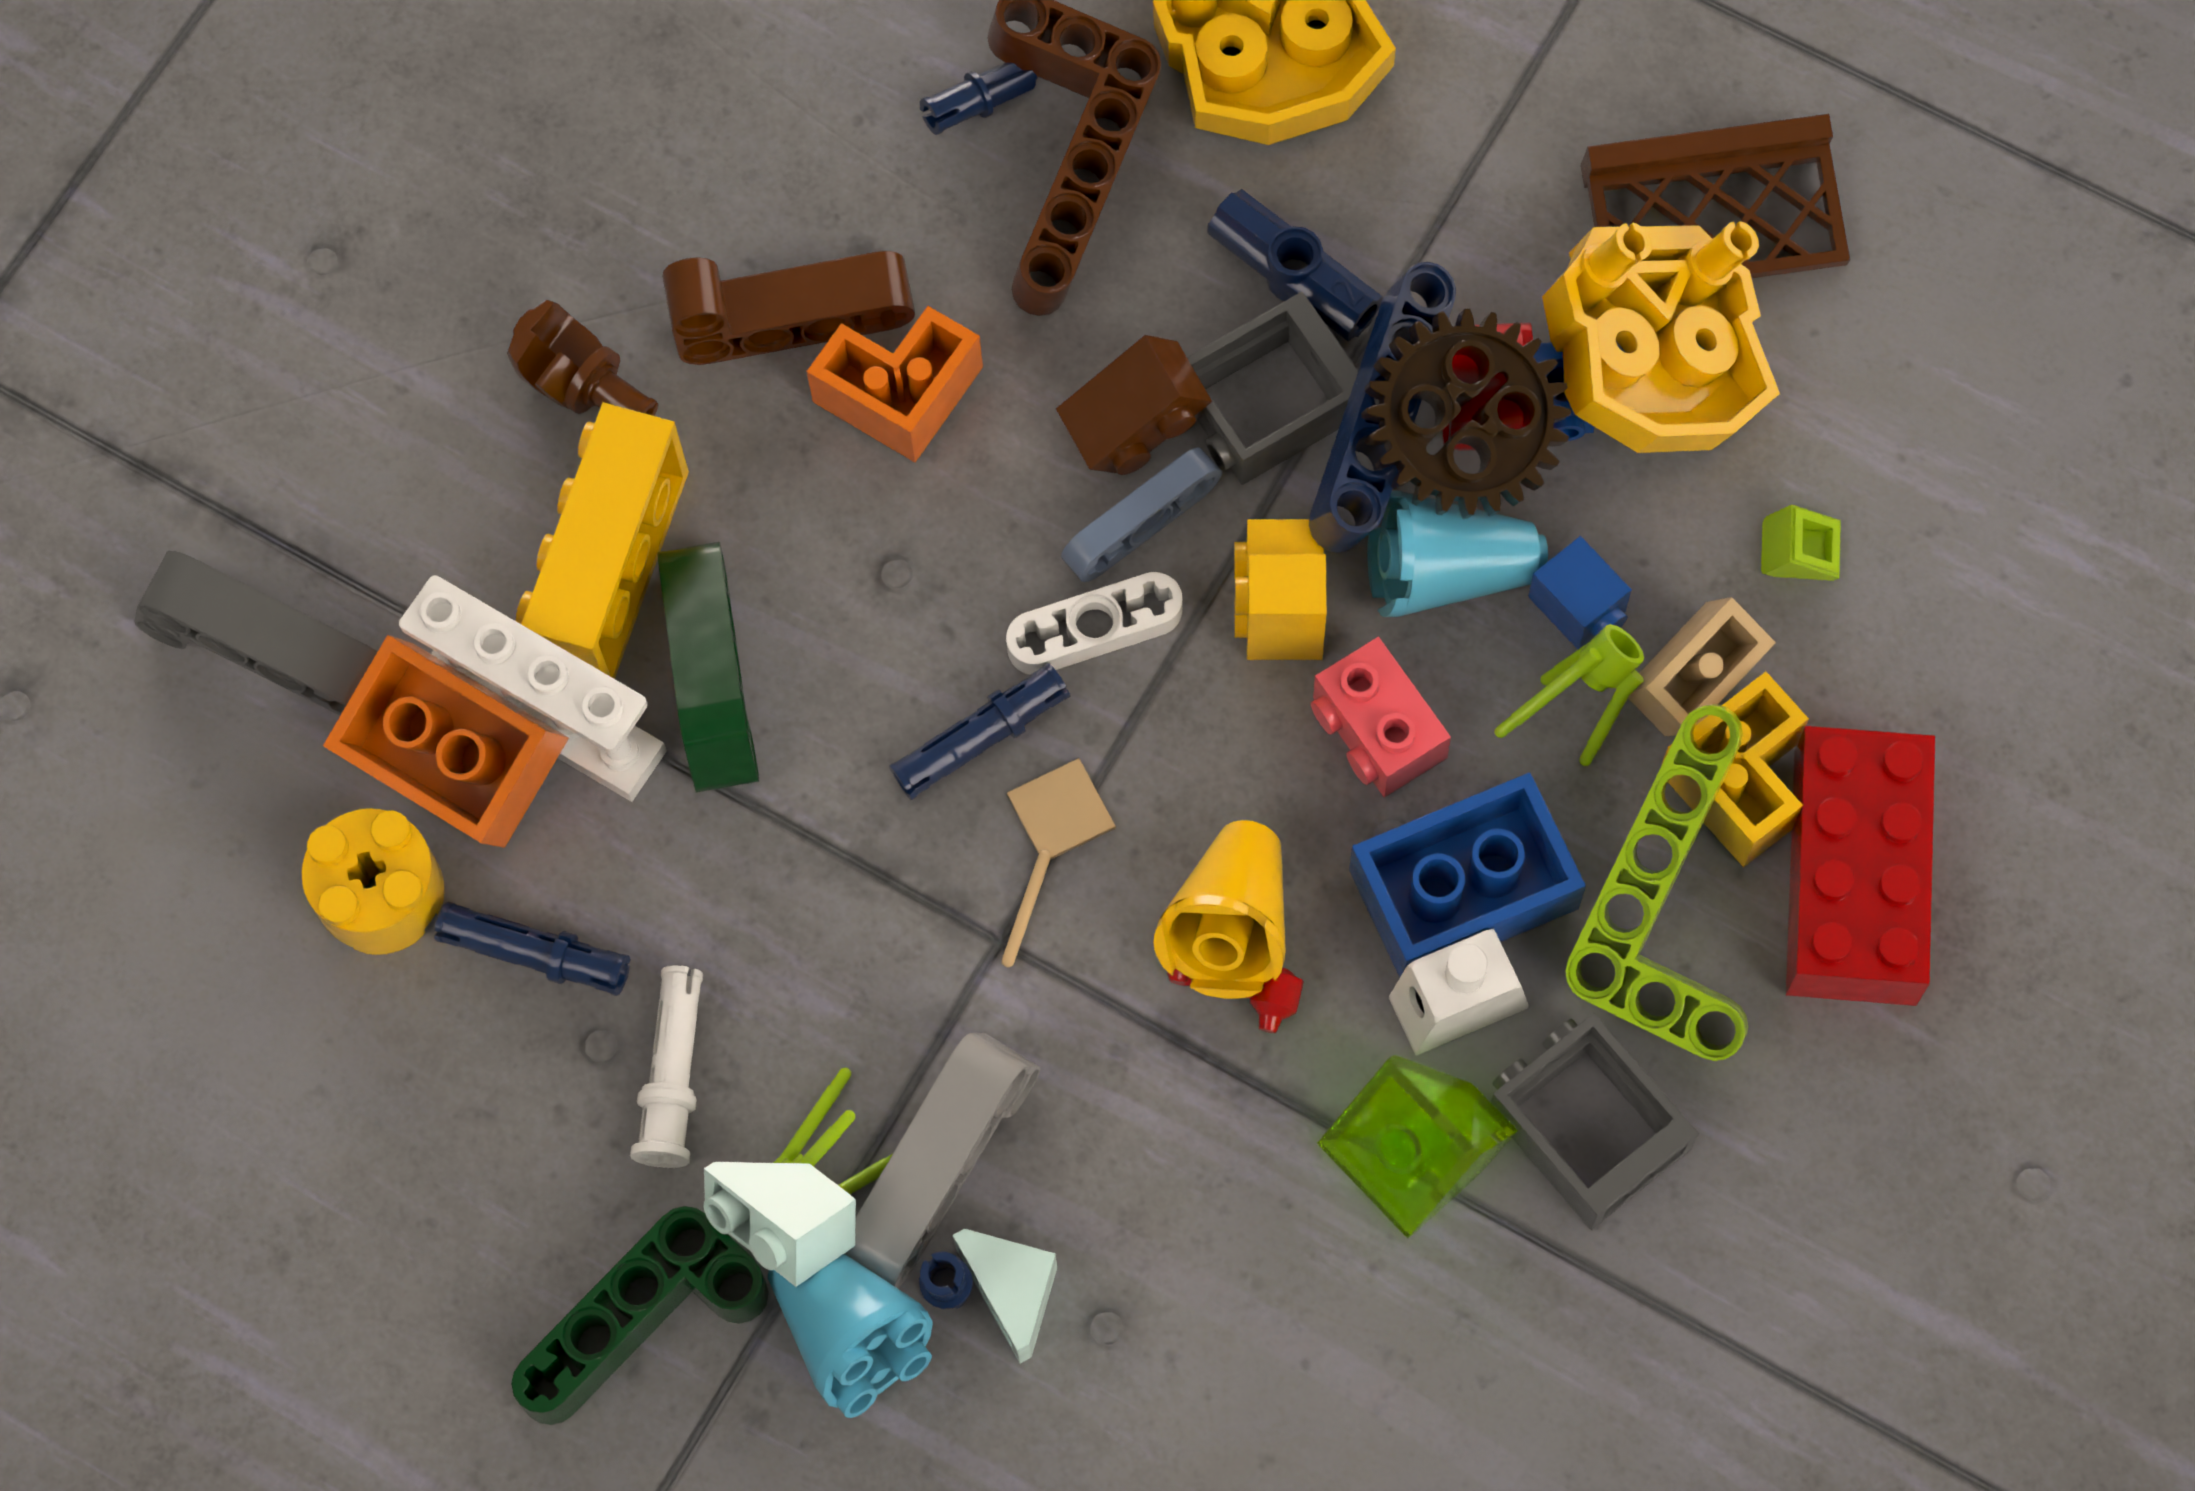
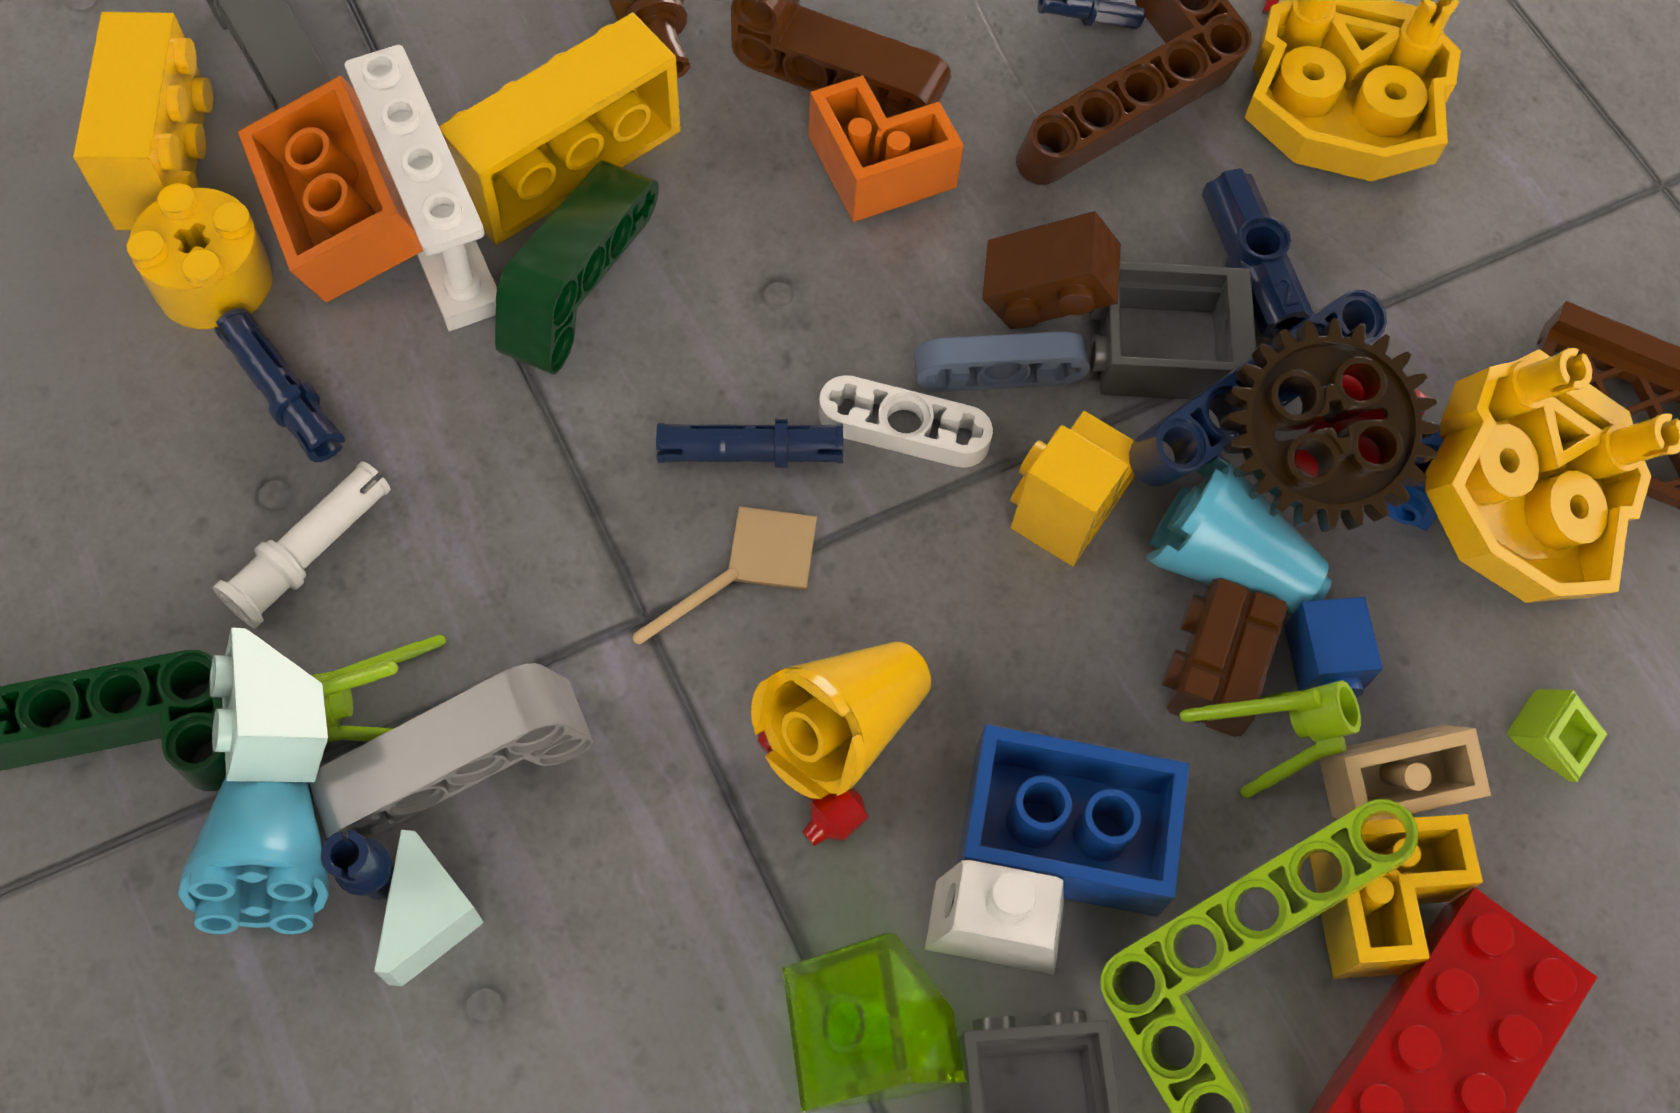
camera: 25 degrees right, 5 degrees down
(223, 787) = (141, 113): none -> yellow brick
(1379, 718) = (1088, 640): coral brick -> none
(1496, 654) = (1226, 651): none -> reddish brown brick

